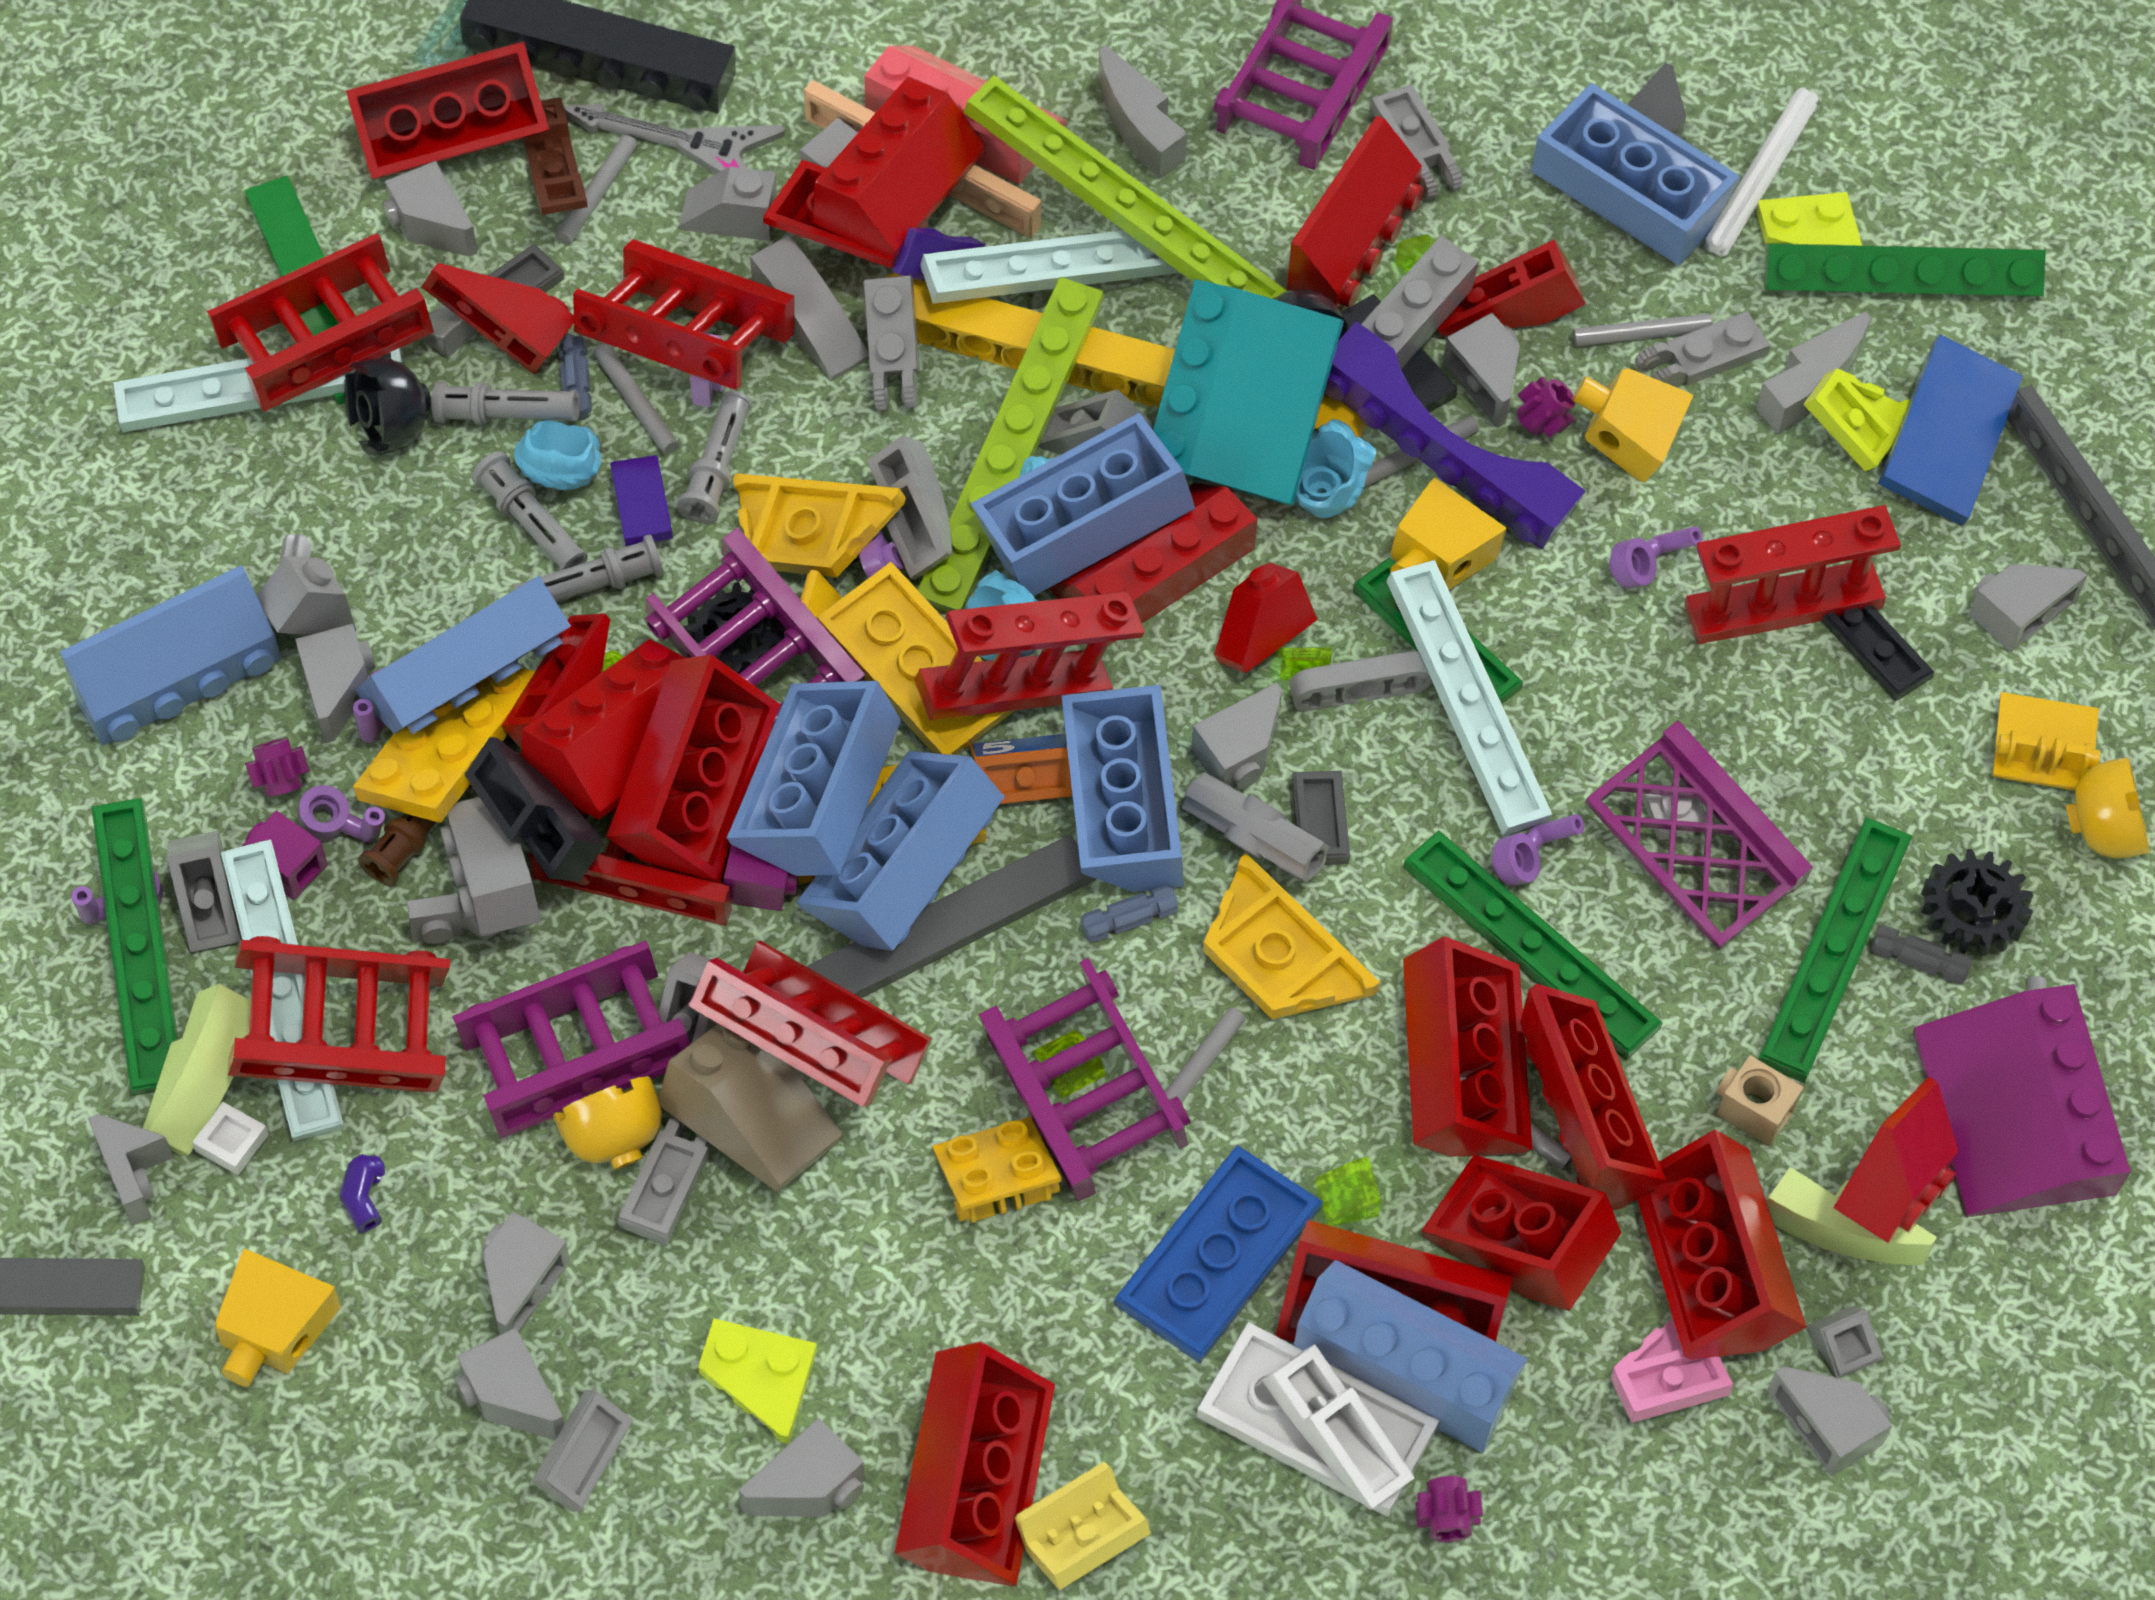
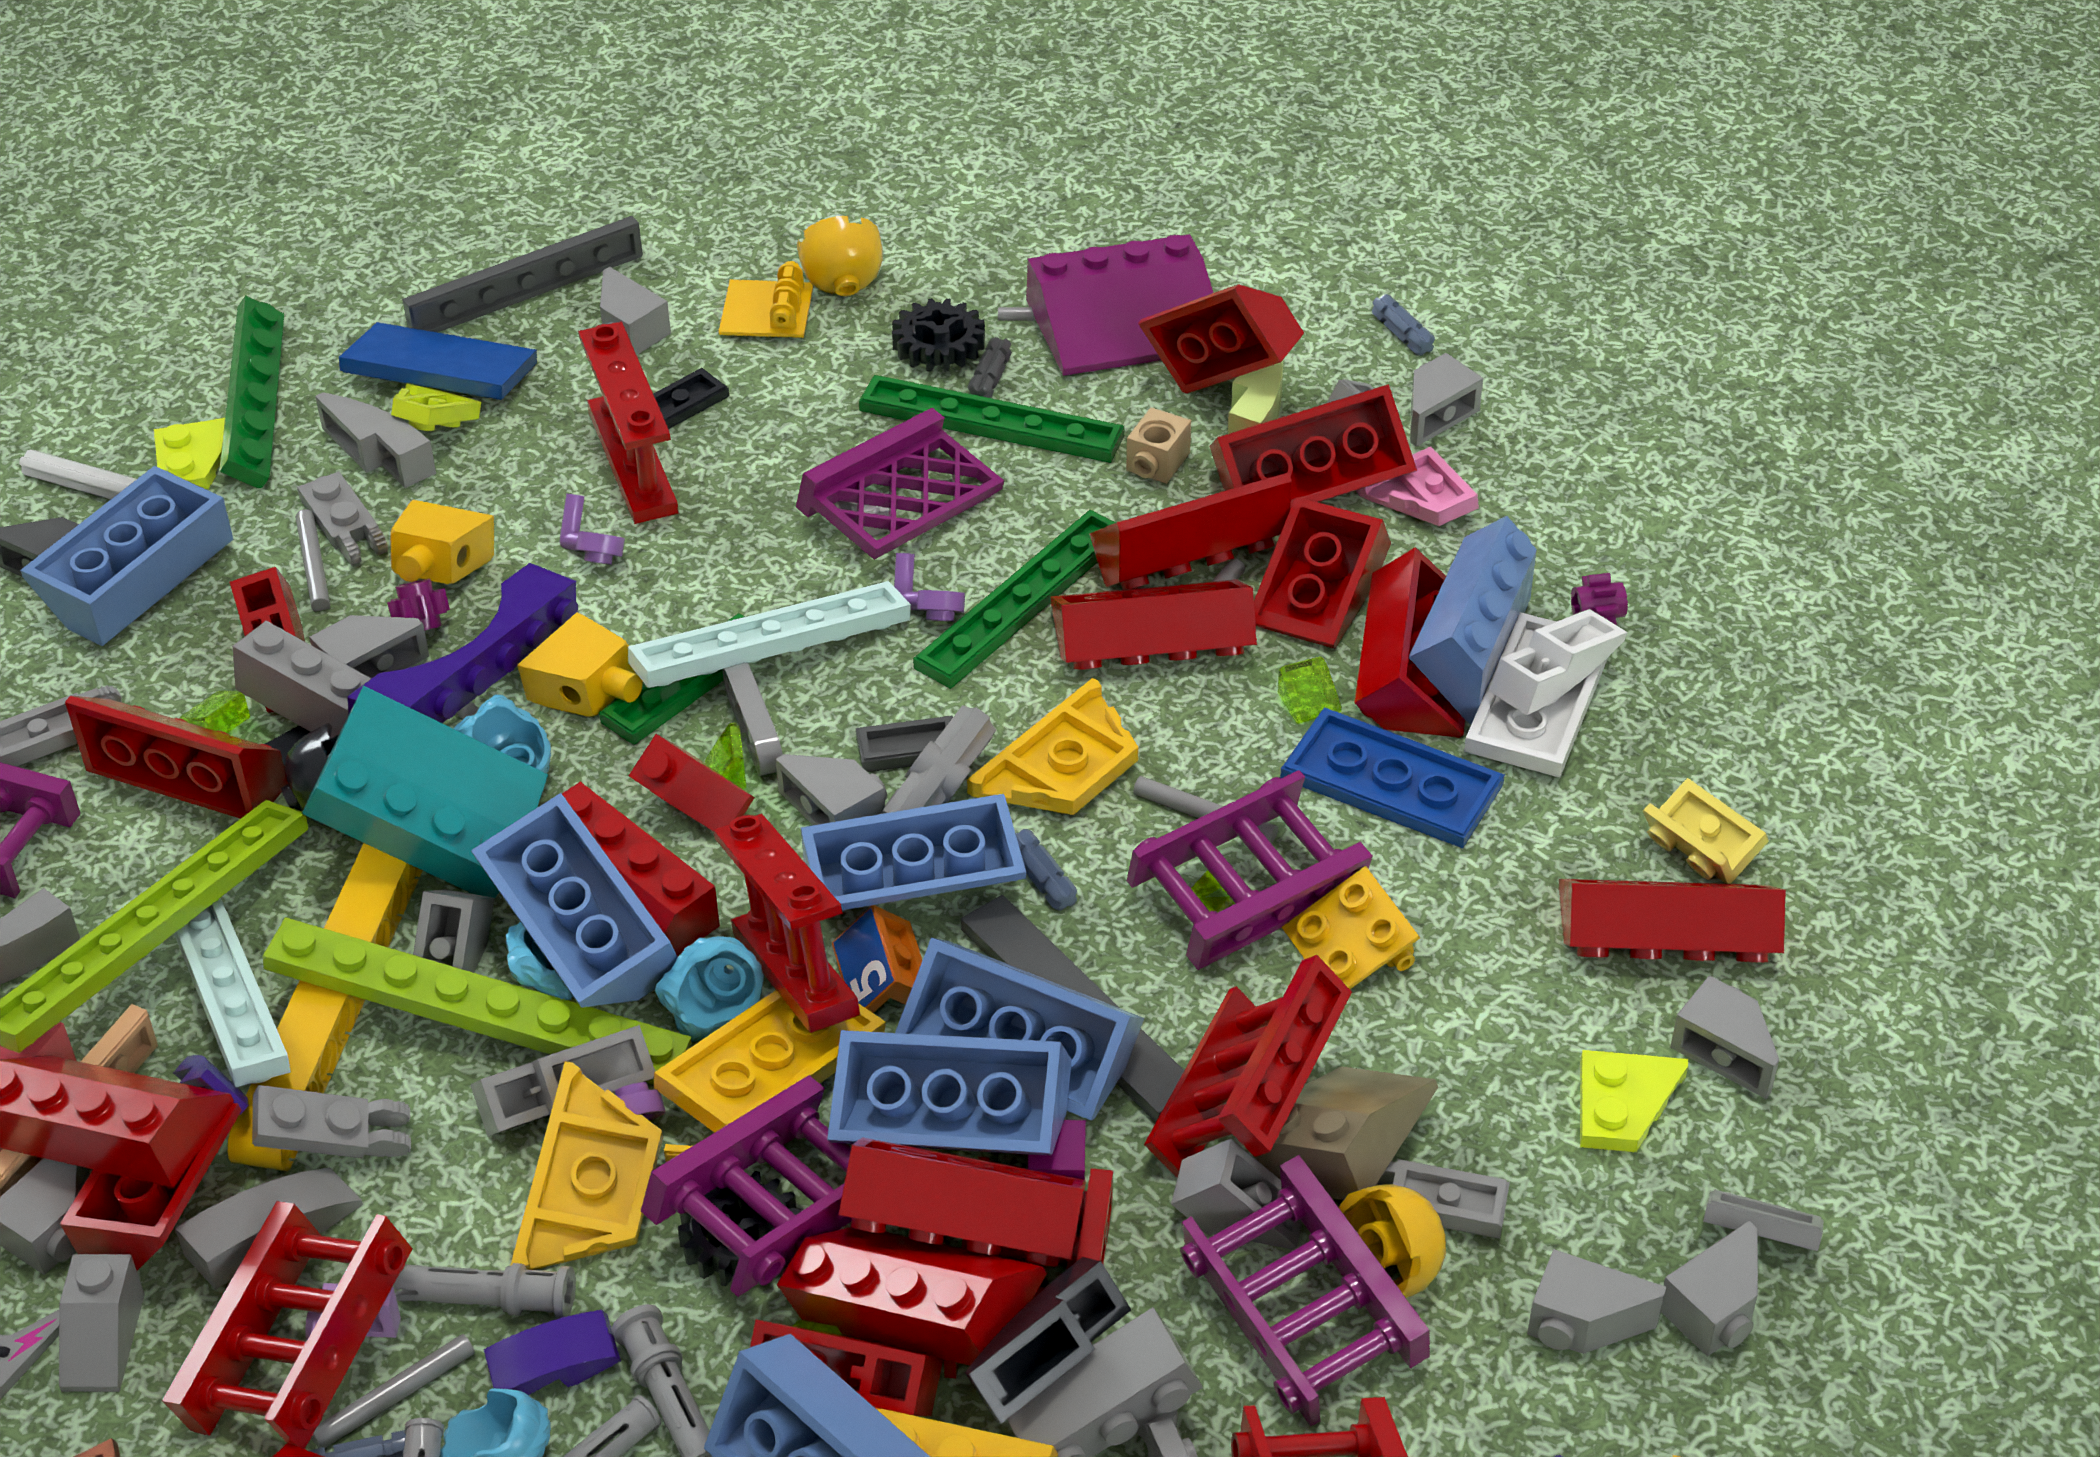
camera: 95 degrees left, 15 degrees down
(1993, 1416) = (1403, 324): none -> sand blue axle

